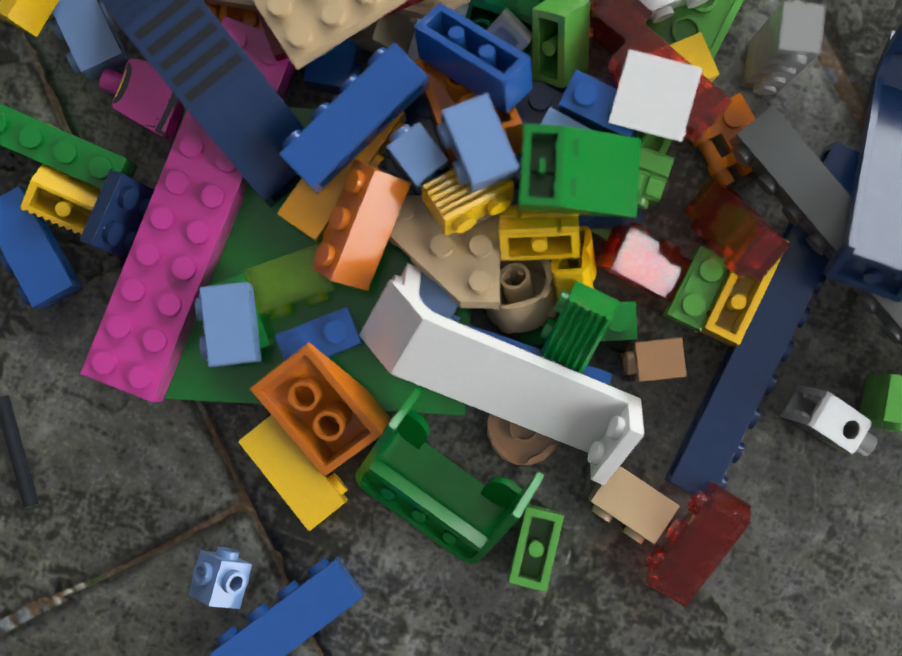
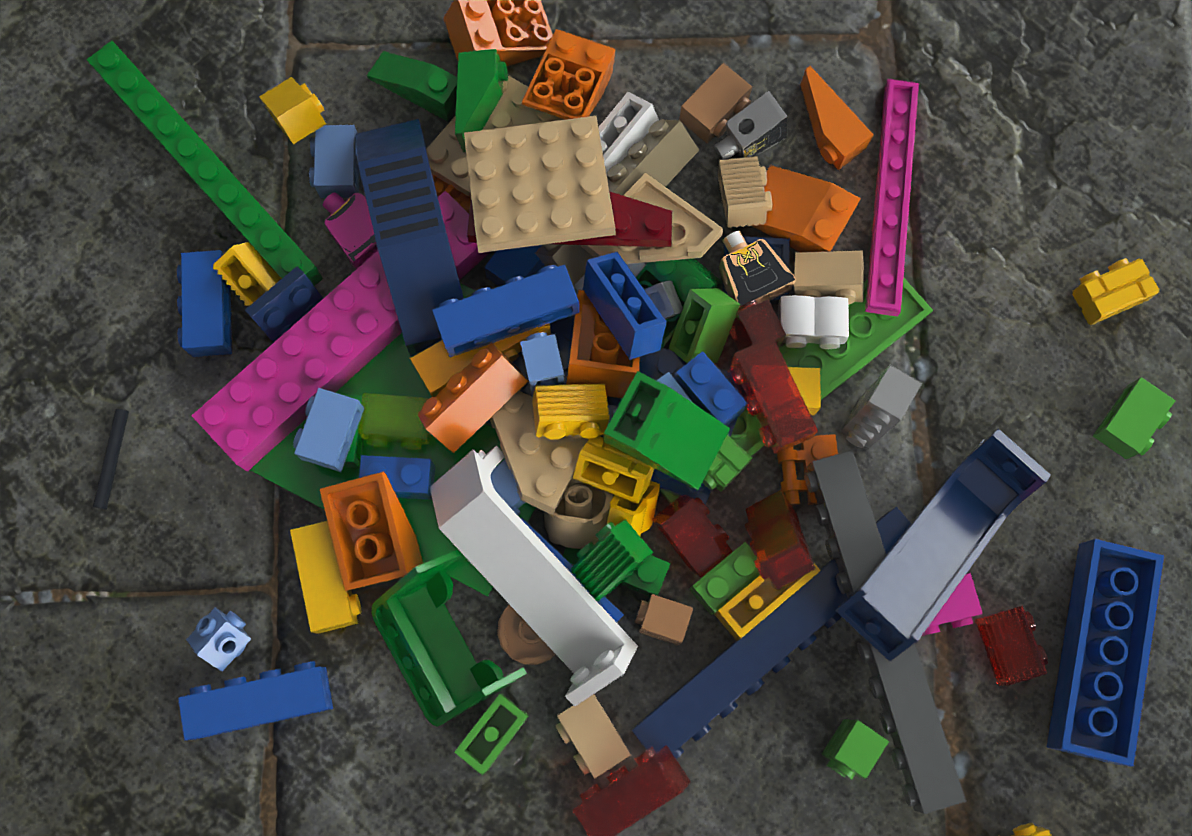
camera: 20 degrees right, 10 degrees down
(478, 144) = (593, 372): medium blue brick -> none
(655, 95) = (756, 398): white sticker -> none
(829, 420) = (792, 742): light grey torso -> none

